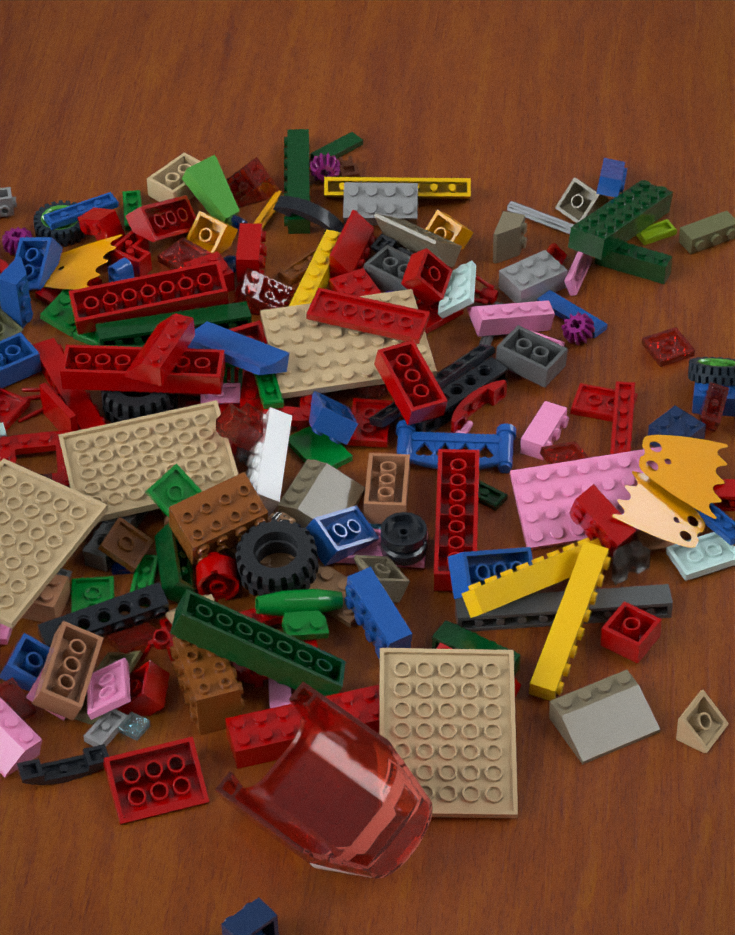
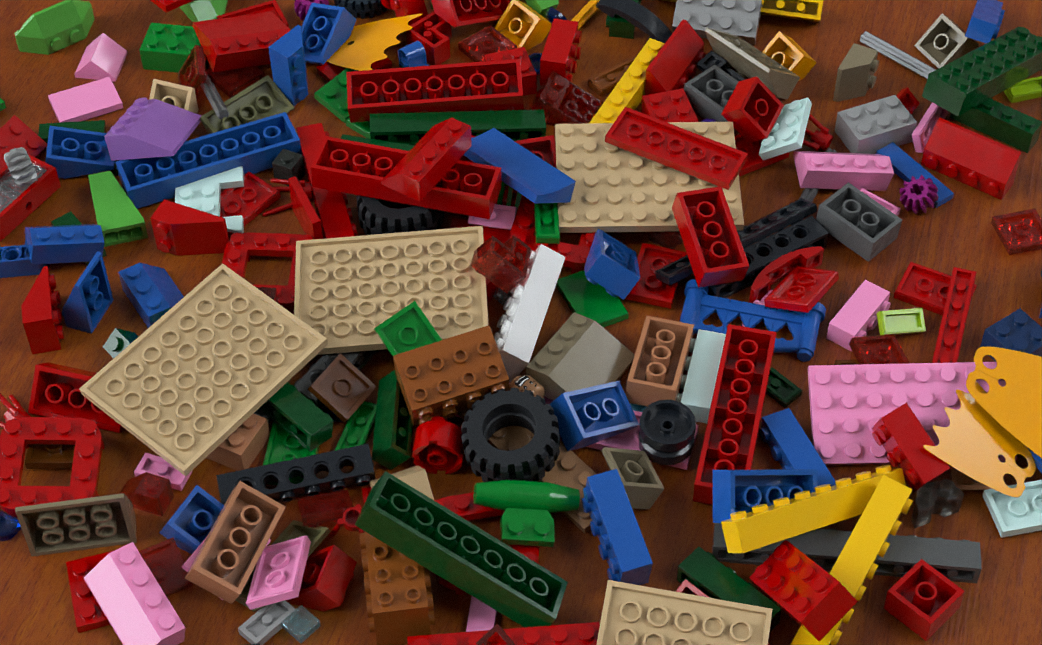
camera: 10 degrees right, 5 degrees up
(32, 376) = (288, 165): none -> pearl dark grey brick
(94, 572) = (299, 417): none -> dark green brick
(423, 490) = (702, 373): none -> light aqua brick
(493, 415) = (801, 289): none -> red tile
(504, 533) = (792, 446): none -> blue brick
(535, 634) = (803, 590): none -> red brick
(580, 430) = (901, 321): none -> lime tile
(617, 293) = (971, 158): none -> red slope

